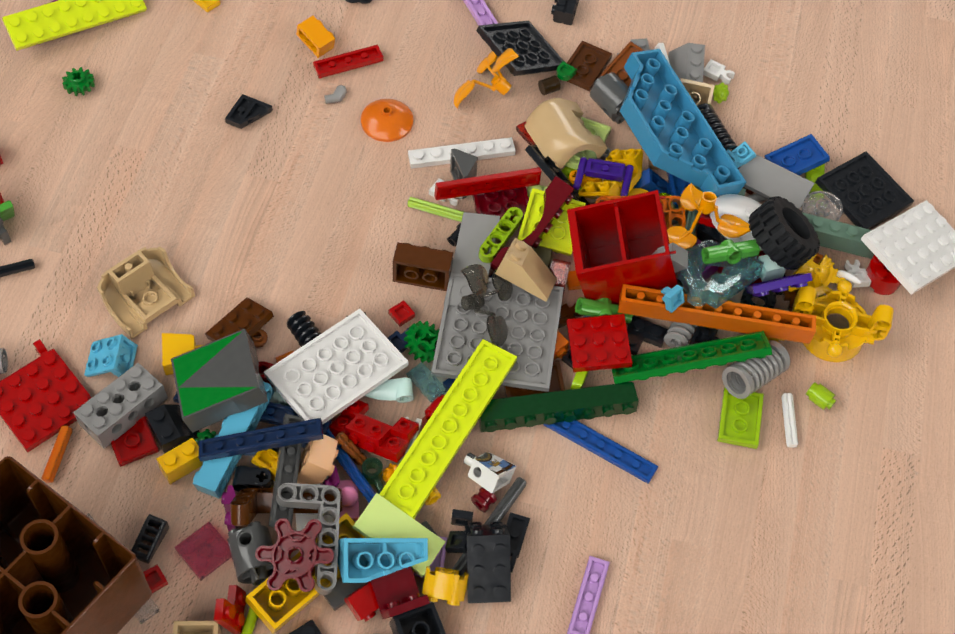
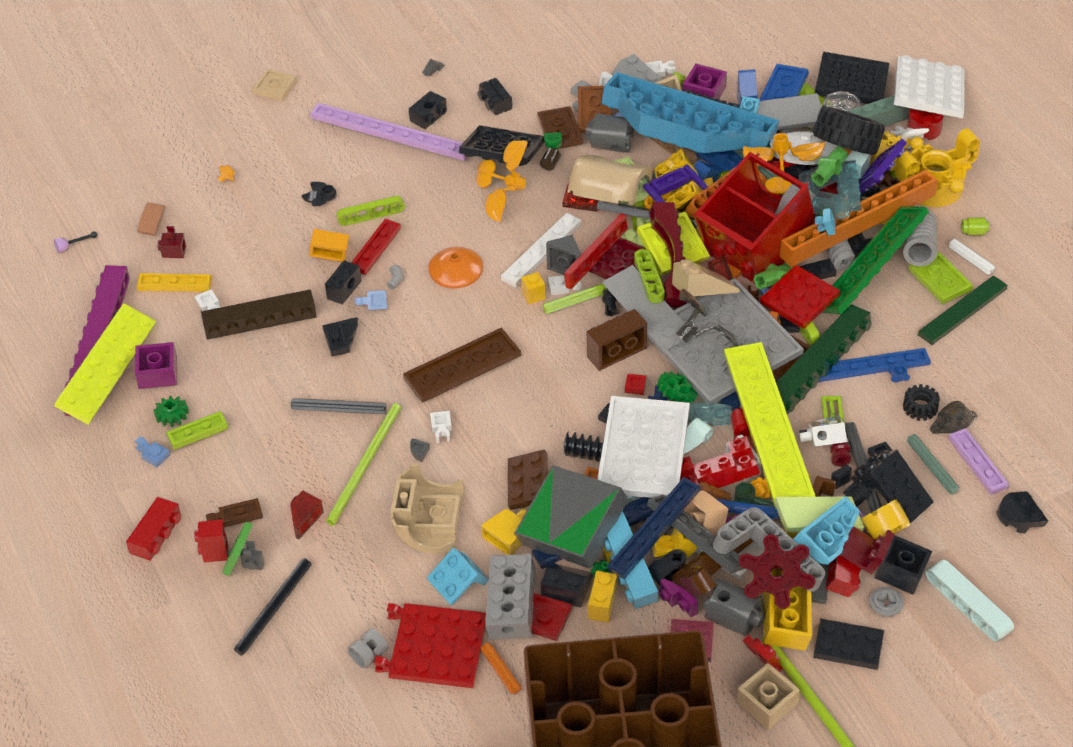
camera: 35 degrees left, 10 degrees down
(31, 190) = (237, 513): none -> reddish brown plate
(36, 103) = (154, 453): none -> medium blue plate
(69, 225) = (305, 512): none -> clear red slope
(79, 108) = (197, 430): none -> lime plate
(104, 40) = (156, 365): none -> magenta brick
(151, 221) = (363, 464): none -> lime piece
(186, 163) = (338, 406): none -> axle
(192, 19) = (207, 300): none -> white plate
(200, 240) = (419, 449): none -> dark grey tile
(213, 53) = (258, 314): none -> dark brown brick
(234, 232) = (441, 424): none -> white plate
(293, 72) = (343, 282): none -> black brick
(299, 101) = (375, 300): none -> medium blue plate
(300, 199) = (461, 364): none -> reddish brown plate
(393, 37) = (370, 208): none -> lime beam
(416, 178) = (533, 288): none -> yellow brick
(432, 512) = (824, 486): none -> reddish brown bracket
(522, 470) = (831, 406): none -> lime tile
(548, 570) = (933, 464): none -> sand green axle
(603, 499) = (924, 394): none -> black tyre
(609, 546) = (953, 418): none -> clear smoke hat
(611, 465) = (898, 373): none -> blue plate
(728, 459) = (962, 310): none -> dark green tile
(735, 109) = (706, 81): none -> magenta brick
(764, 137) = (746, 84): none -> slope

